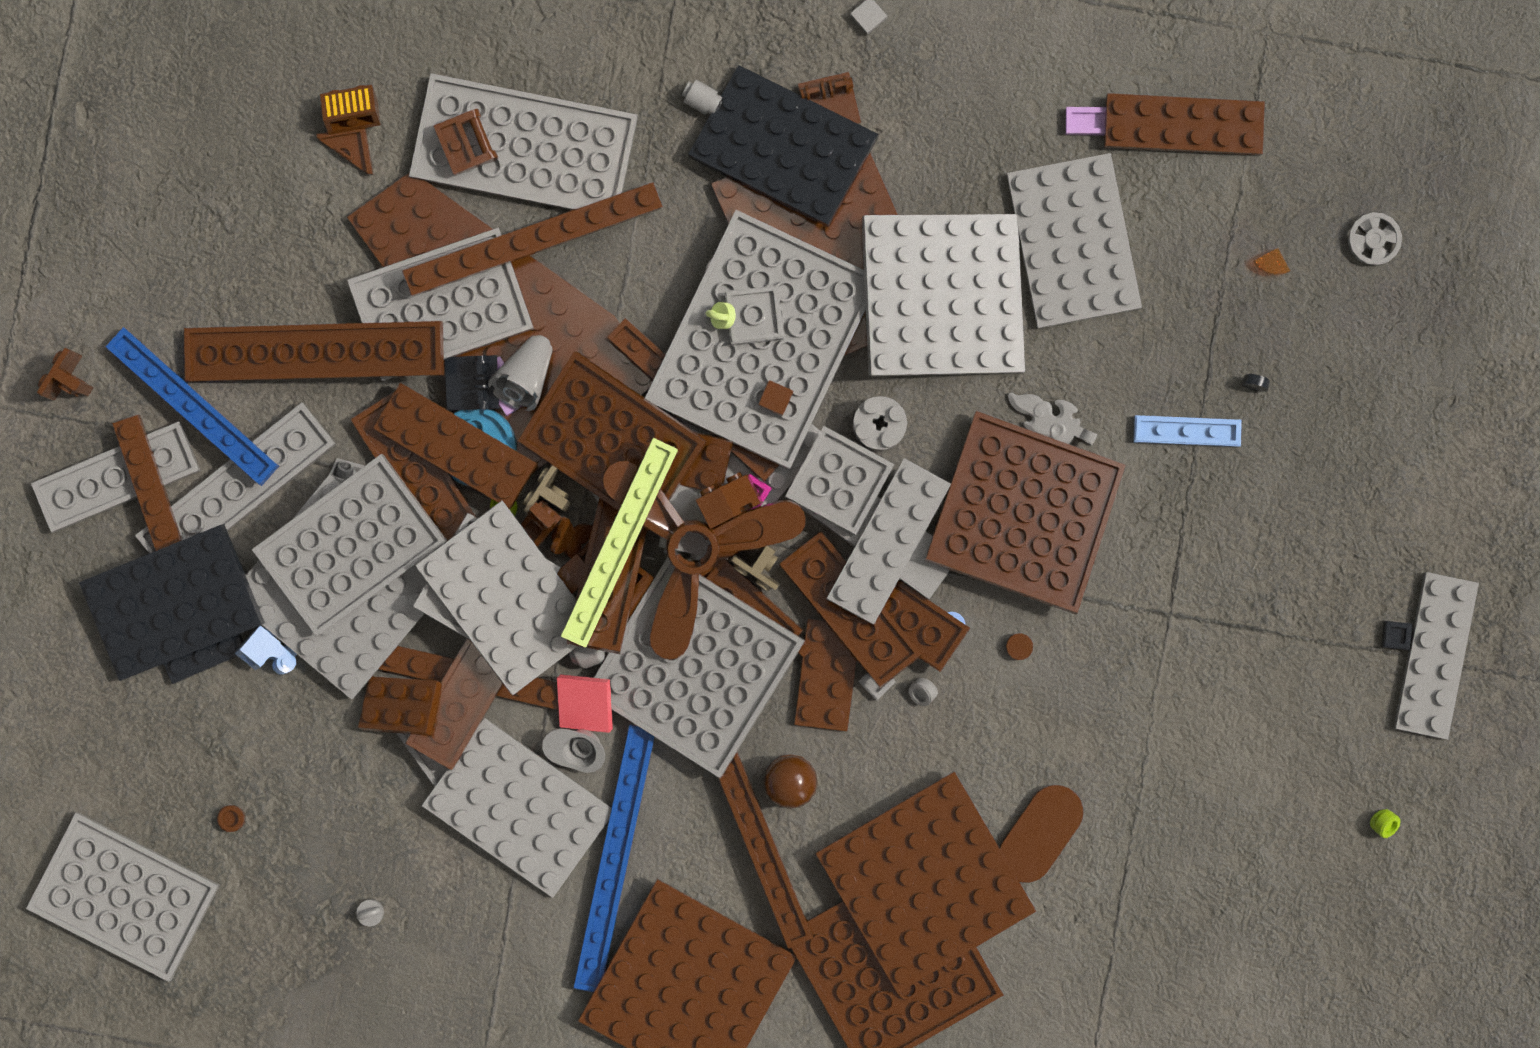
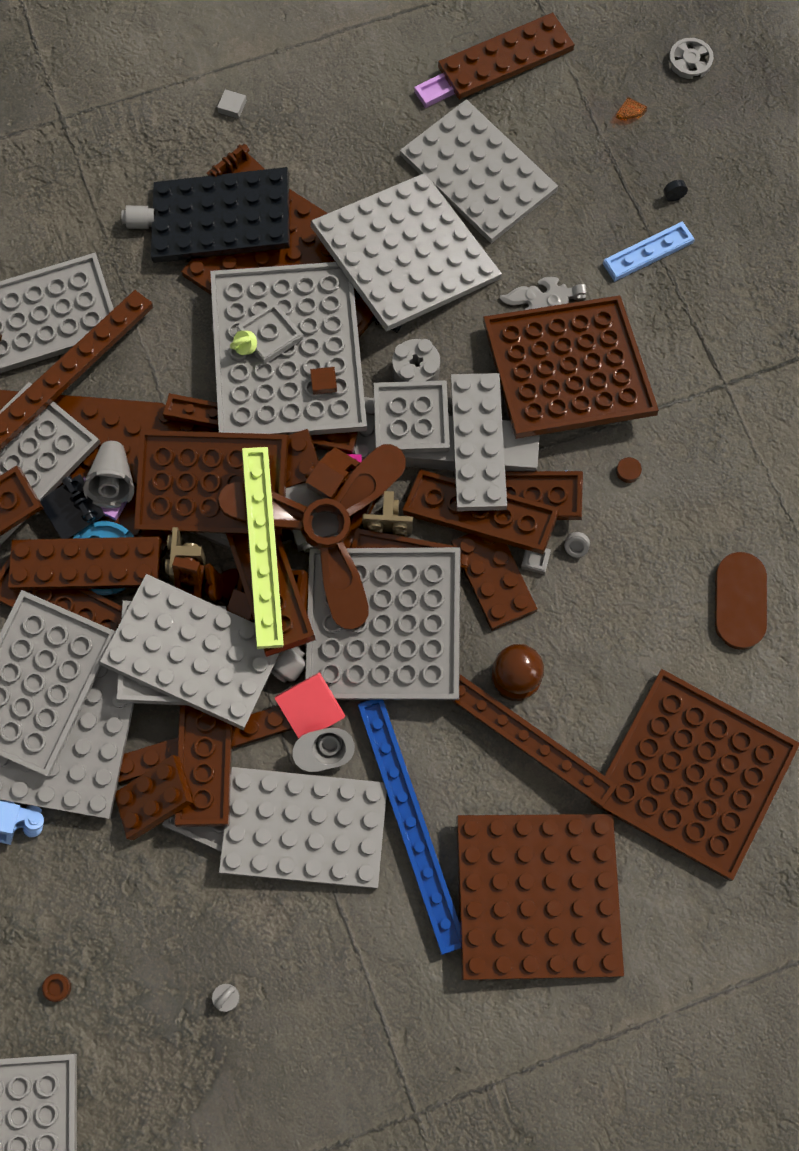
camera: 30 degrees left, 15 degrees down
(925, 882) = (678, 689): reddish brown plate -> none

